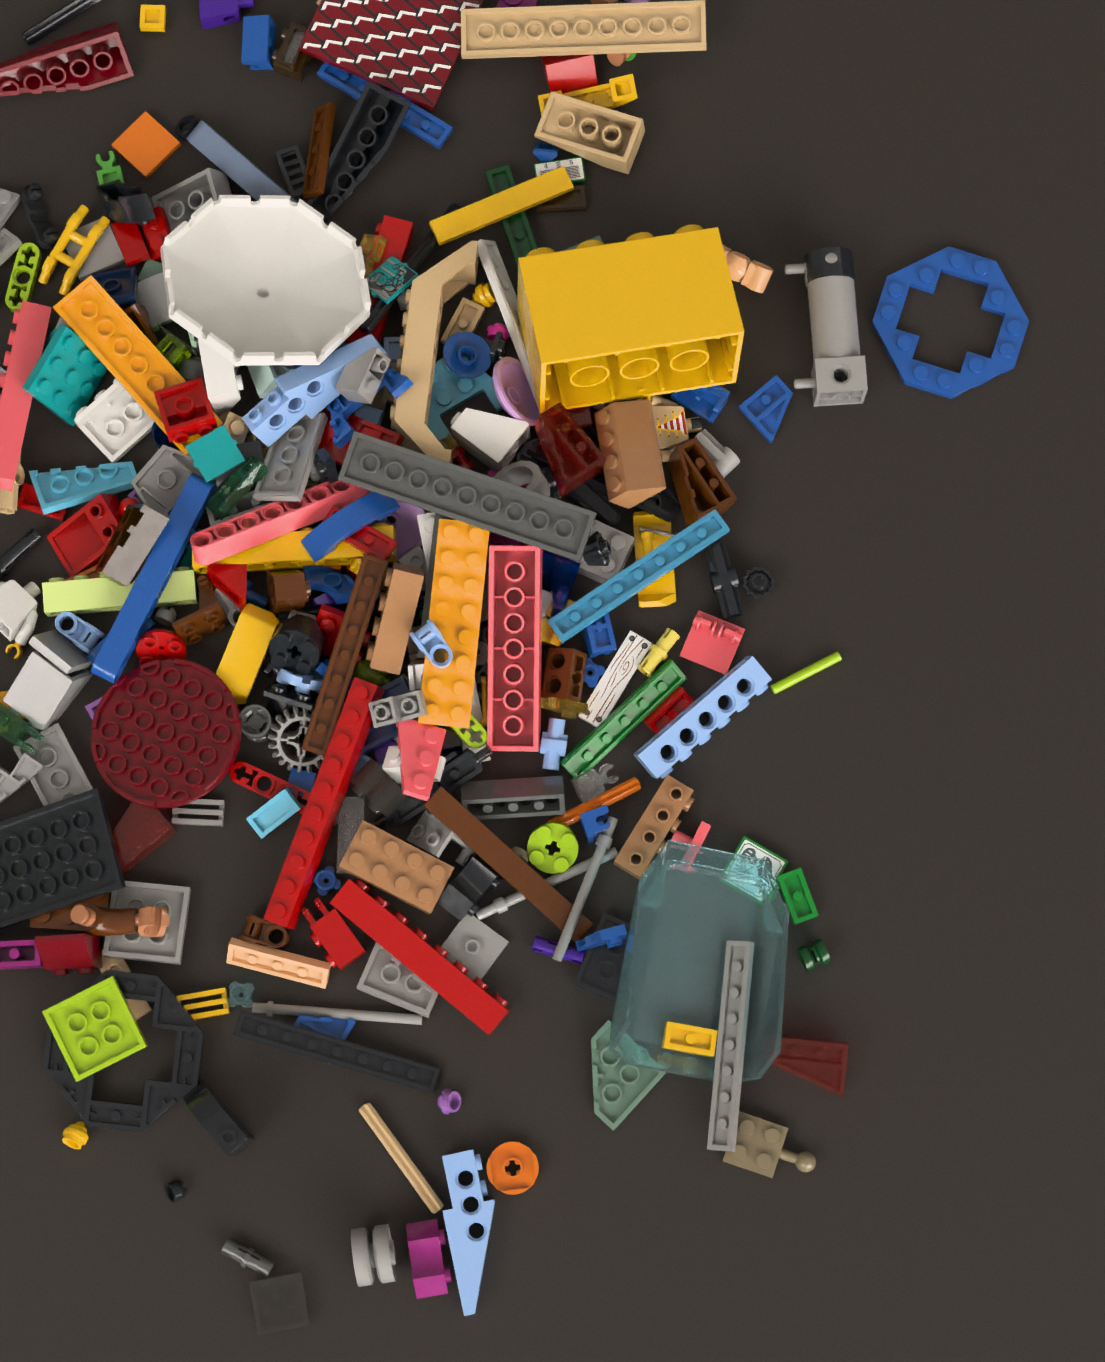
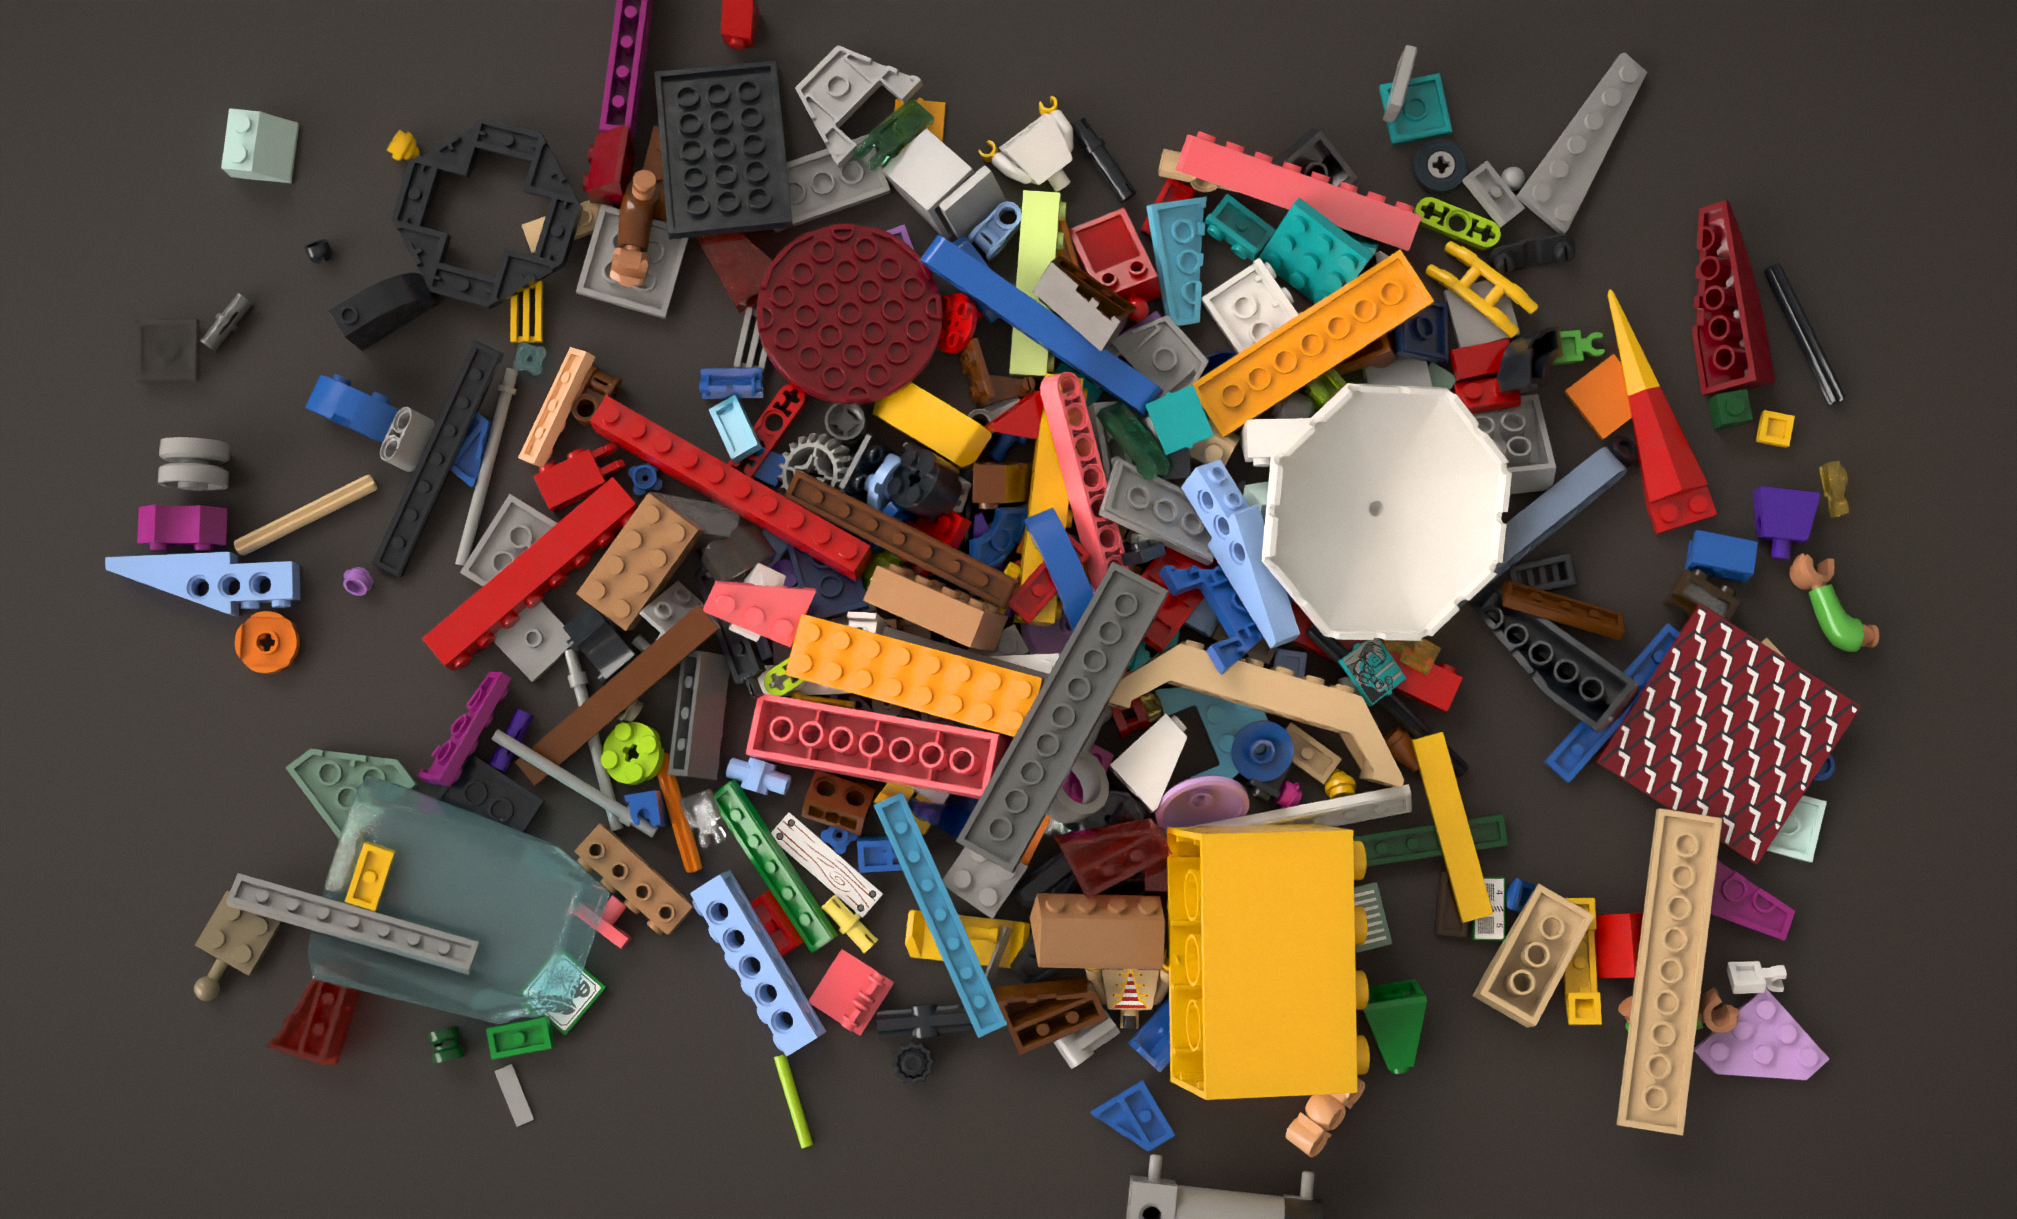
camera: 100 degrees right, 5 degrees up
(50, 442) = (1239, 228): none -> teal bracket
(93, 1257) = (259, 146): none -> light aqua slope
(95, 1028) = (512, 182): lime plate -> none
(142, 51) = (1730, 409): none -> dark green brick
(165, 616) = (998, 335): light grey hinge -> none
(185, 410) = (1240, 392): red plate -> none
(197, 90) = (1670, 474): none -> red plate
(235, 823) = (726, 382): none -> blue hinge
(305, 1132) = (351, 407): none -> blue brick
(324, 1081) = (406, 439): none -> light grey beam
(363, 376) = (1241, 614): light grey slope -> none
(398, 708) = (820, 591): light grey slope -> none
(431, 643) = (887, 644): light blue piece -> none
(446, 250) = (1401, 747): none -> dark orange cone
(558, 985) = (465, 731): none -> magenta wing
(567, 708) = (795, 799): clear yellow plate -> none
(597, 550) = (976, 869): black piece -> none
(611, 937) = (505, 799): blue wing -> none
(658, 217) = (1396, 1020): none -> green slope
(843, 895) = (514, 1095): none -> light grey window

